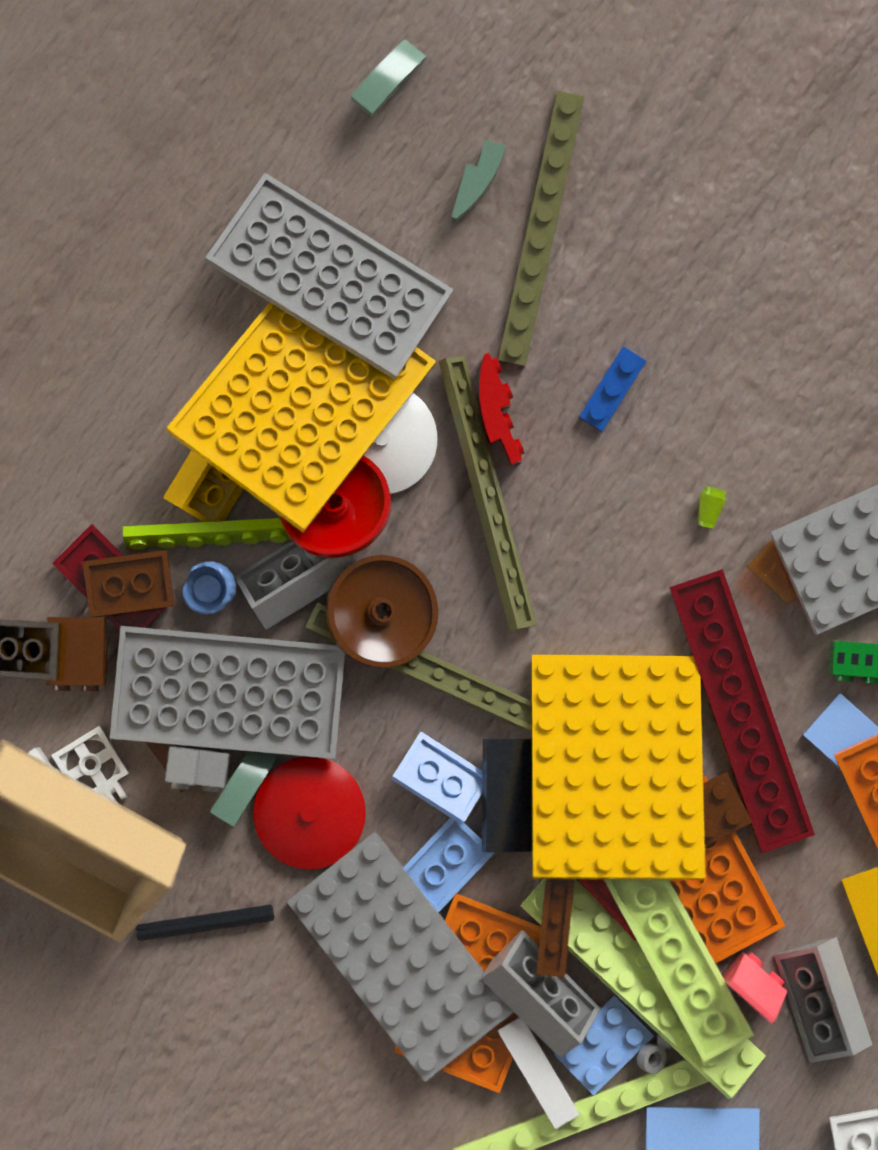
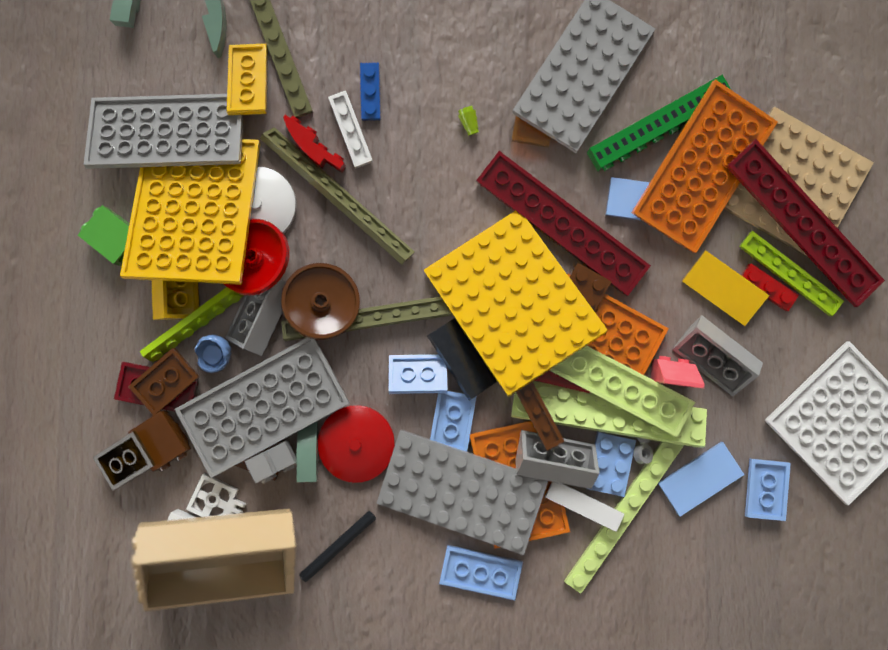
camera: 30 degrees left, 0 degrees up
(177, 359) = (106, 234): none -> bright green brick
(358, 1070) = (481, 572): none -> light blue tile
(470, 276) = (247, 79): none -> yellow tile
(557, 421) = (350, 129): none -> white plate

